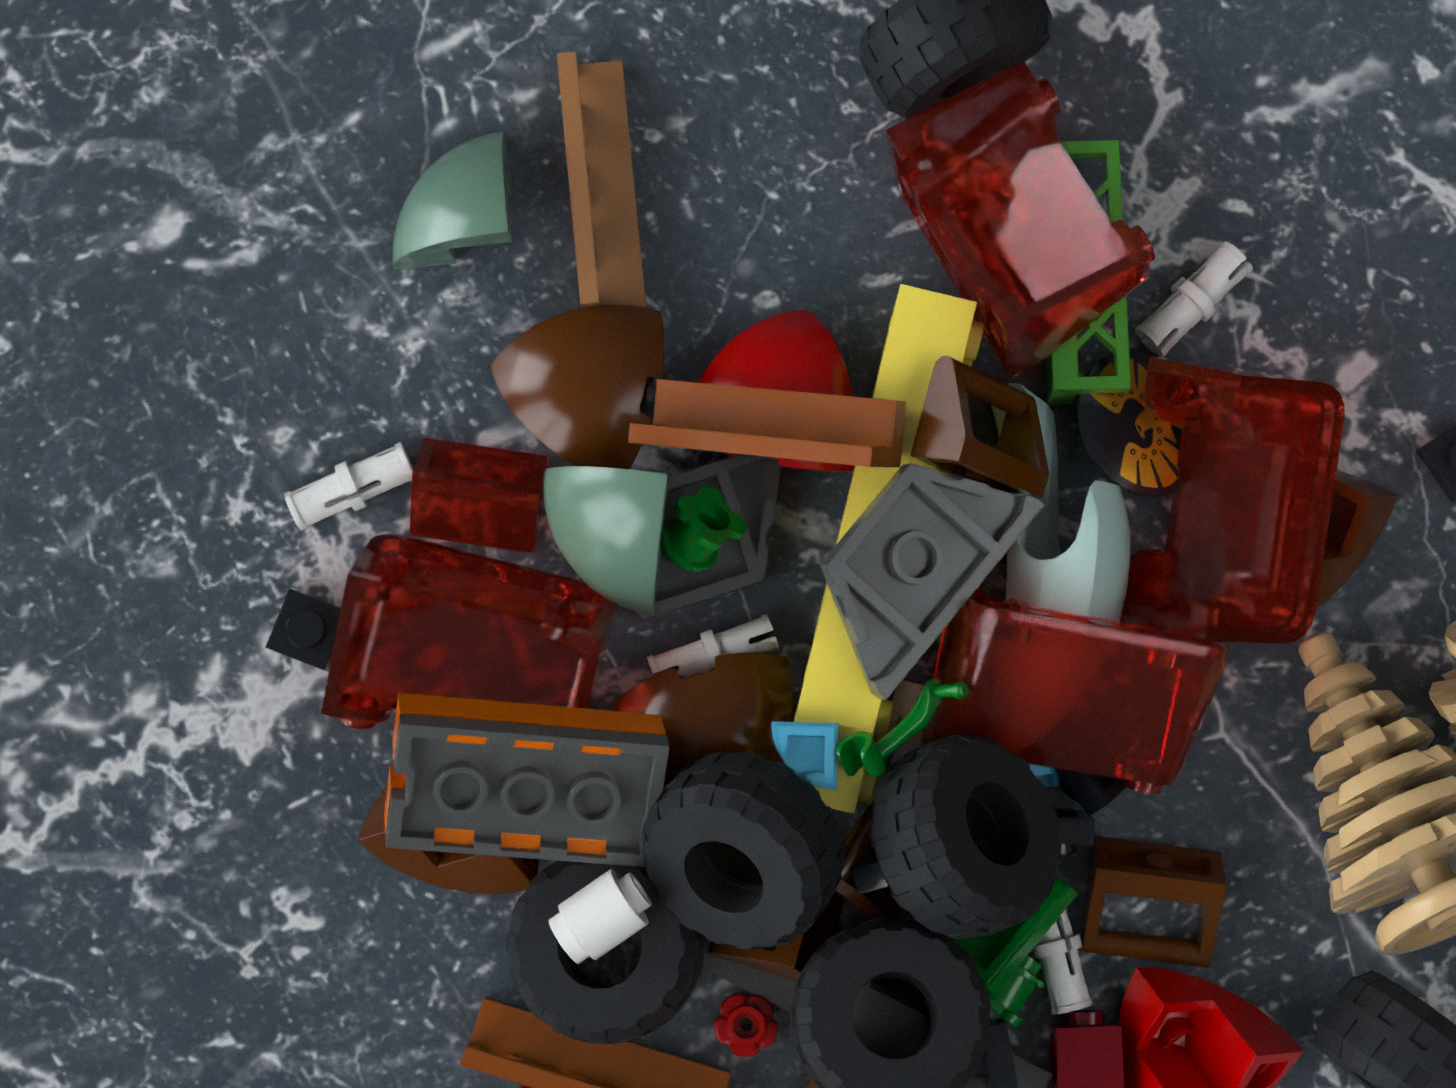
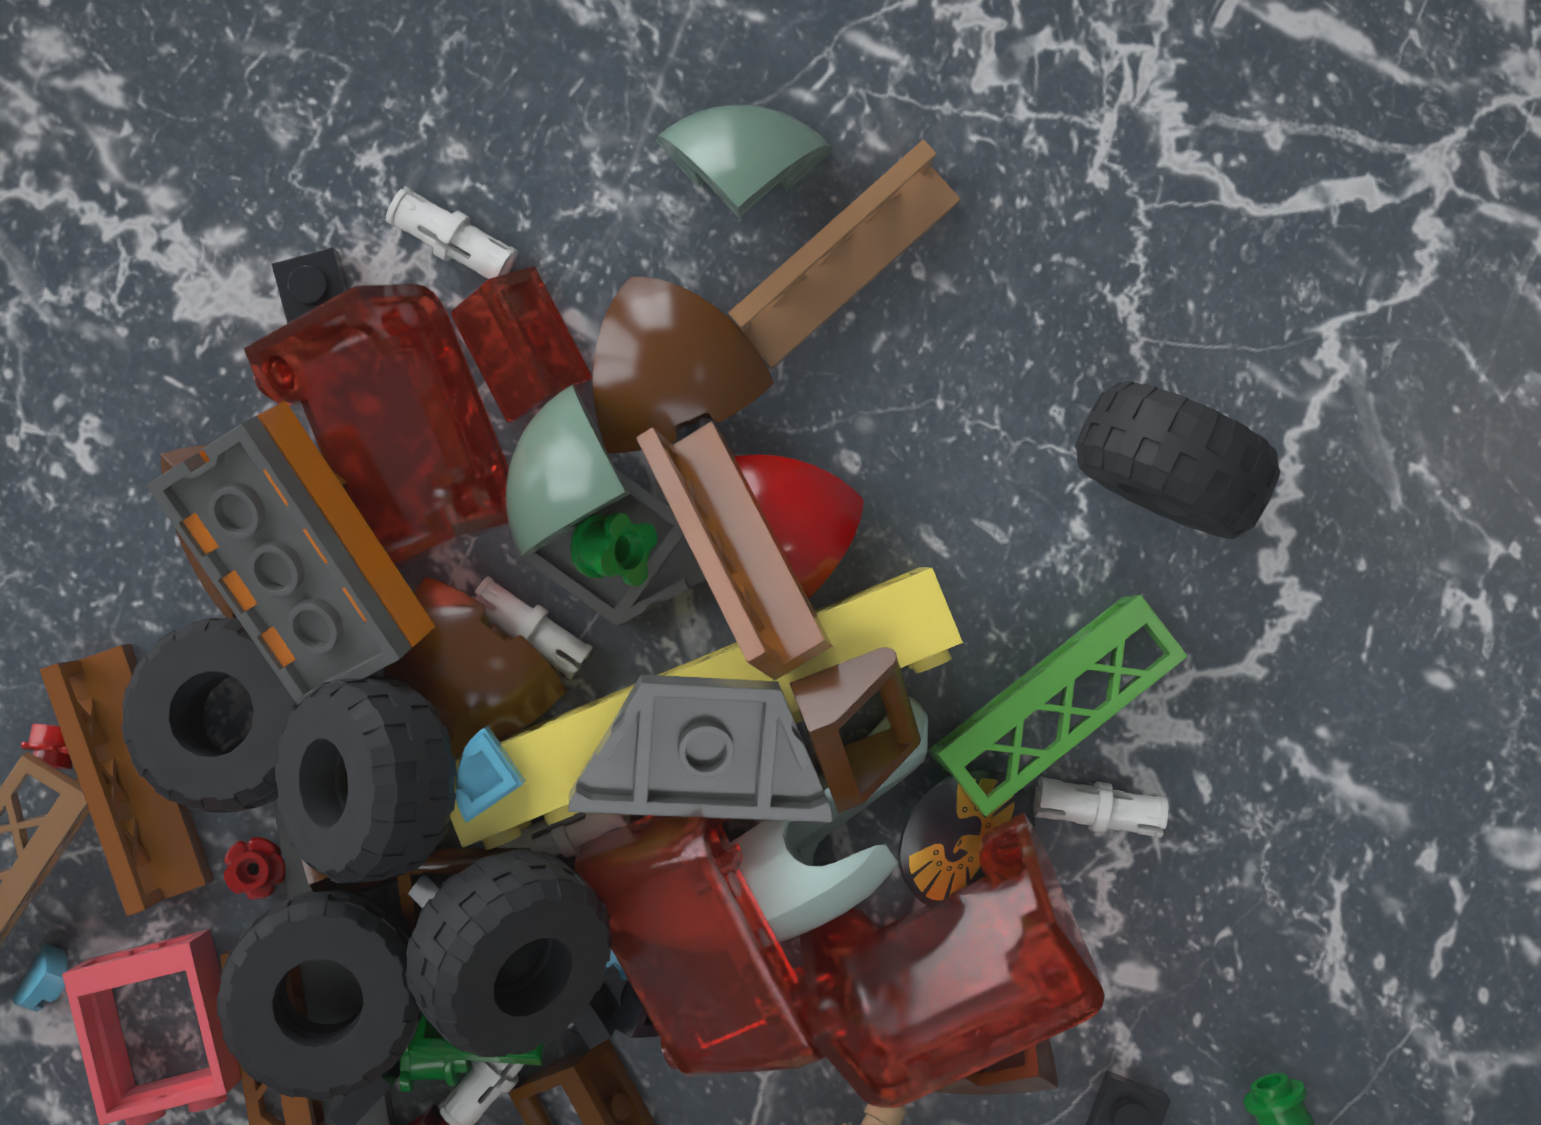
camera: 50 degrees right, 5 degrees up
(600, 916) = (226, 701): white brick -> none
(860, 748) = (515, 818): green piece -> none
(1014, 216) = (1060, 621): clear red windscreen -> none

